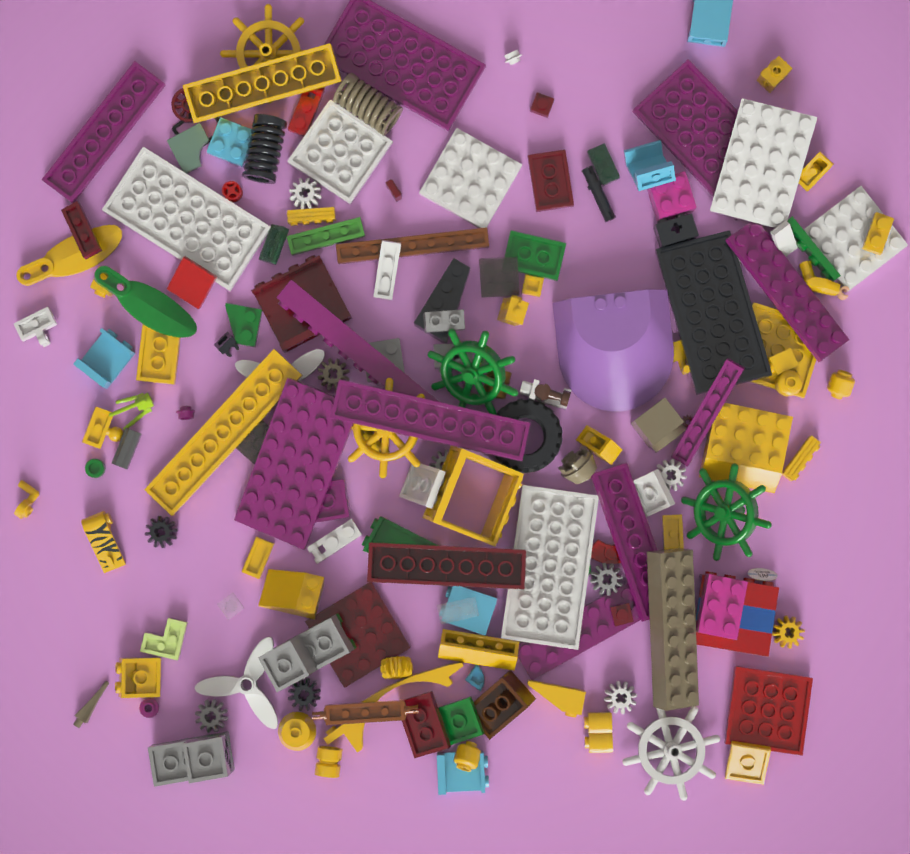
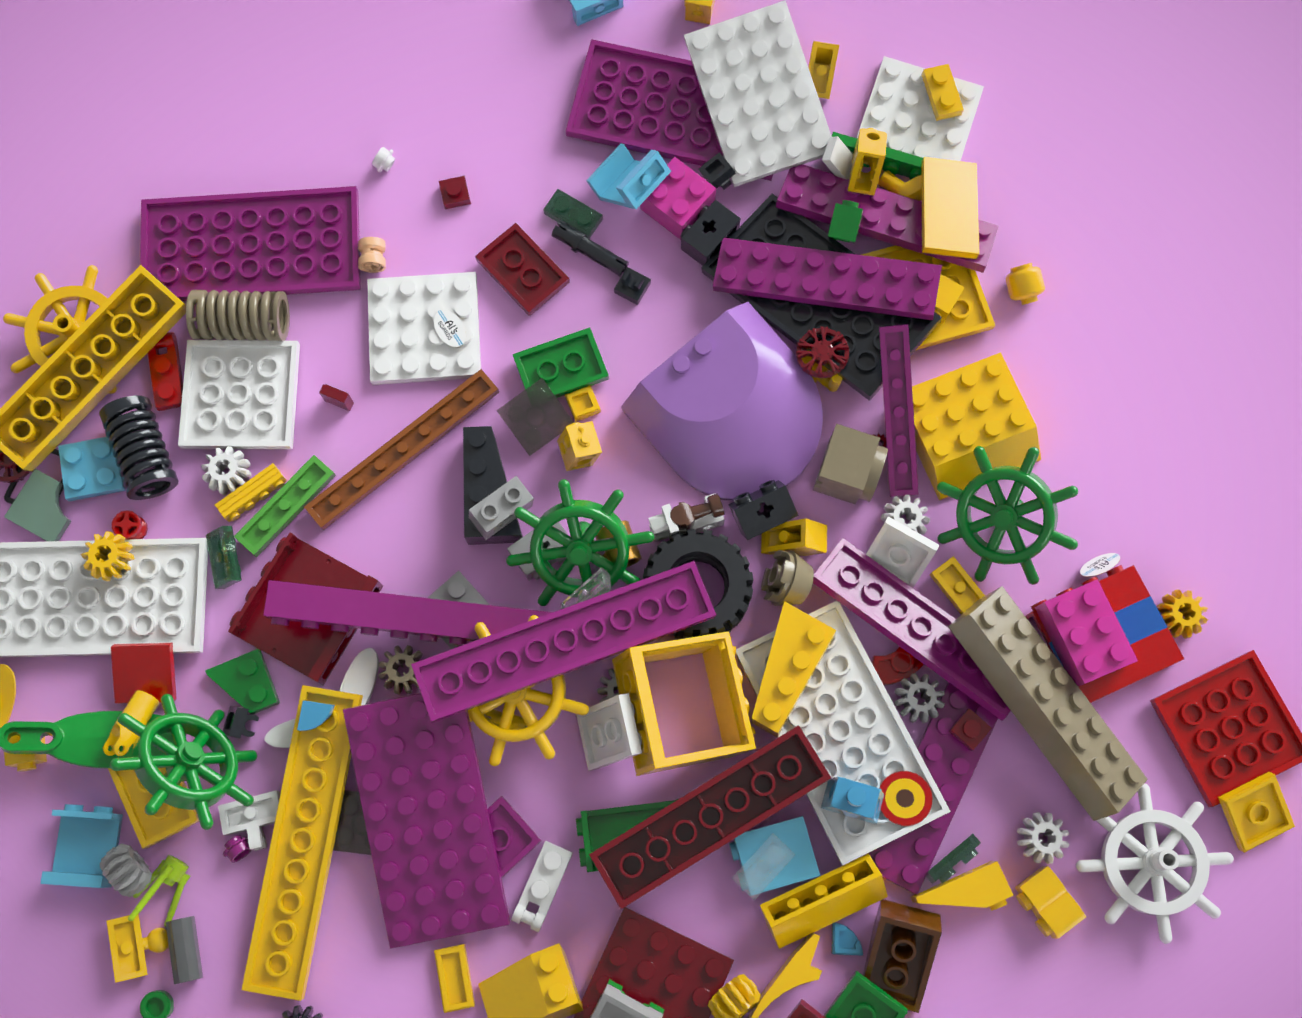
camera: 40 degrees left, 10 degrees down
(121, 386) = (125, 870): none -> light grey gear
(169, 308) = (139, 707): none -> yellow piece
(187, 350) = (184, 761): none -> green piece
(203, 400) = (240, 818): none -> white plate
(215, 208) = (98, 554): none -> yellow gear
(270, 369) = (313, 715): none -> dark azure tile
(387, 269) = (389, 496): white plate -> none
(464, 400) = (596, 585): none -> clear plate
(468, 114) = (371, 254): none -> light nougat wheel
(484, 191) = (449, 328): none -> white sticker
(529, 608) = (853, 799): none -> dark azure torso
(546, 514) = (793, 658): none -> yellow wedge
(555, 676) = (965, 852): none -> clear green plate
(558, 626) = (906, 798): none -> sticker
(599, 423) = (777, 510): none -> black brick
(608, 232) = (632, 286): none -> black tile
(688, 349) = (822, 352): none -> dark red wheel
(705, 196) = (717, 171): none -> black tile
(722, 306) = (827, 278): none -> magenta plate
(756, 280) = (845, 221): none -> green brick
(788, 383) = (967, 317): yellow head -> none
(801, 245) = (869, 150): none -> yellow torso
(801, 457) = (1042, 397): yellow piece -> none
(825, 311) = (950, 208): none -> yellow tile

